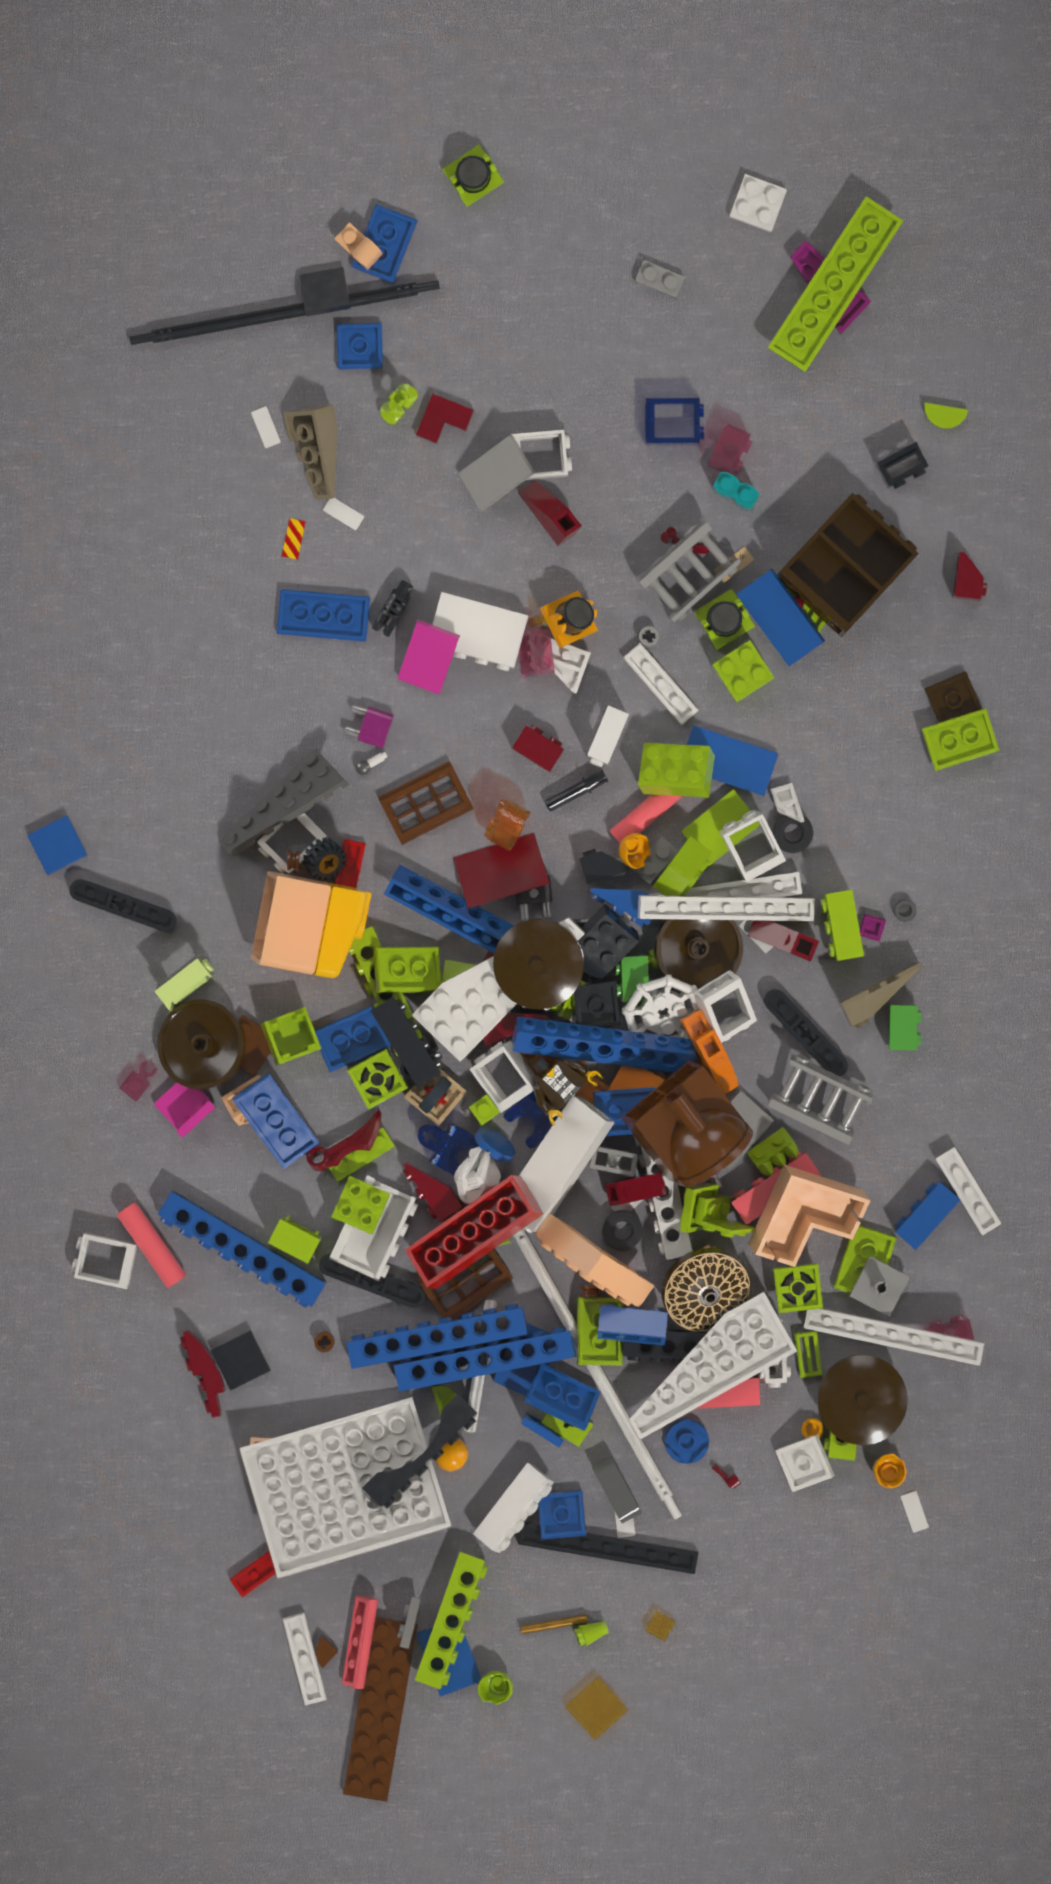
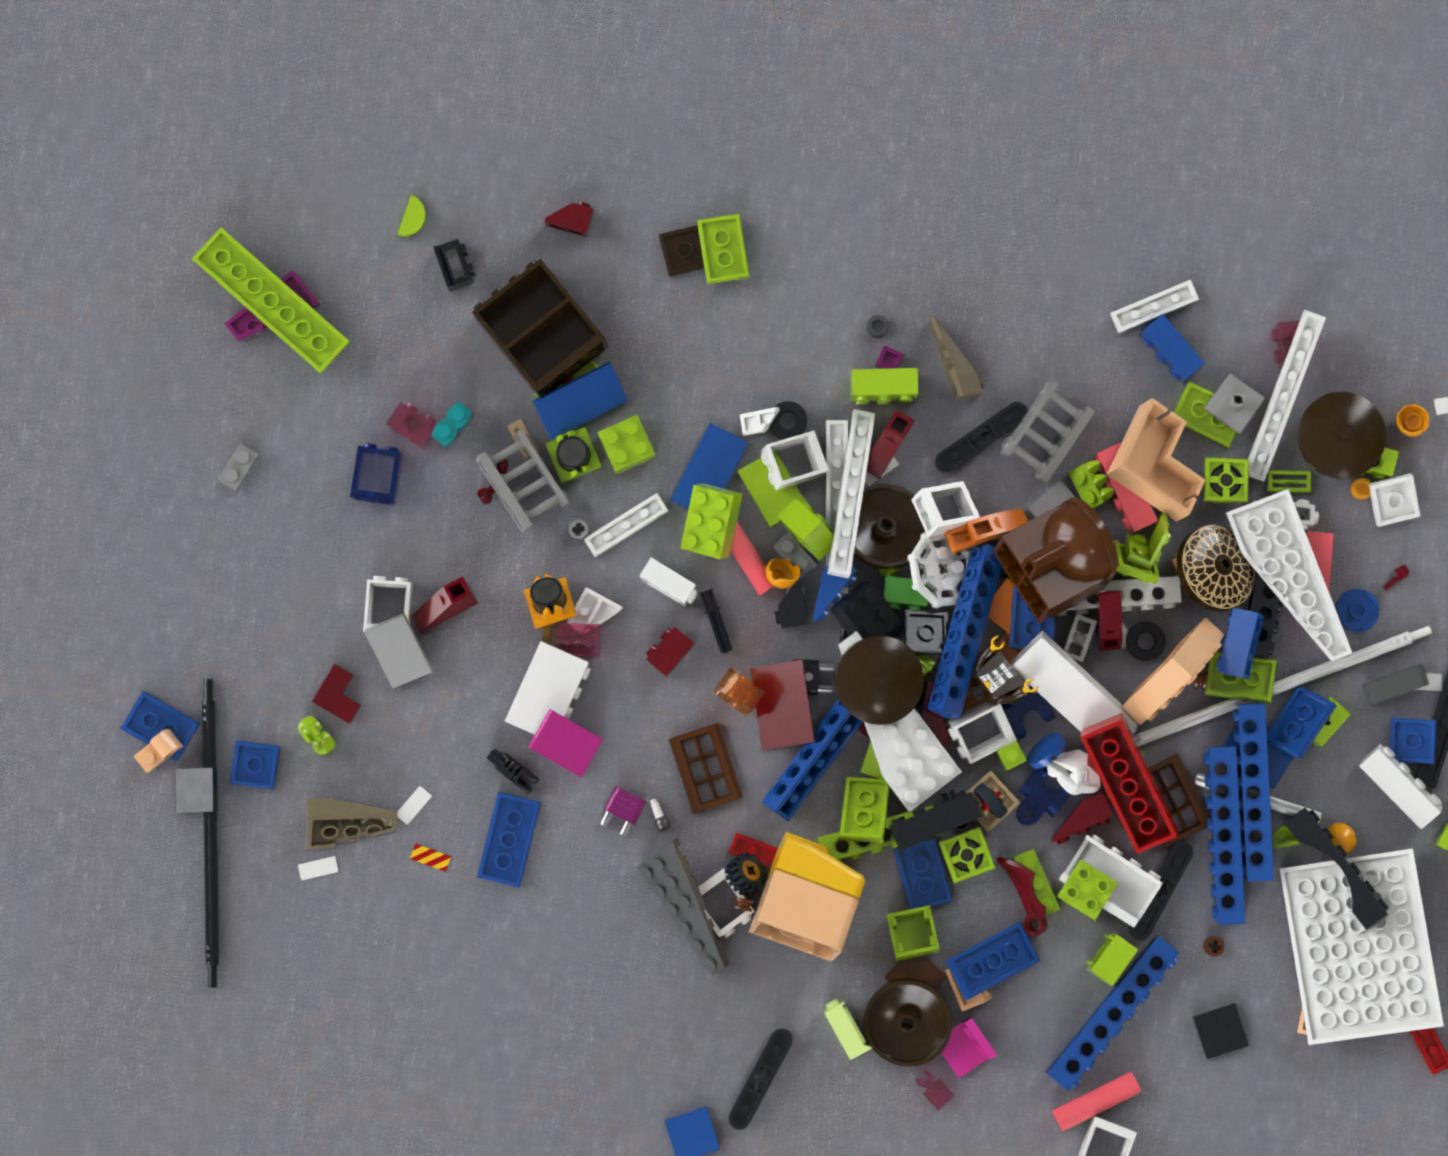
camera: 85 degrees left, 5 degrees down
(202, 1362) = (1218, 1069): dark red slope -> none
(472, 175) = (108, 630): piece -> none
(539, 1428) = (1324, 752): blue tile -> none
(758, 203) = (181, 363): white plate -> none
(903, 1027) = (990, 343): bright green brick -> none

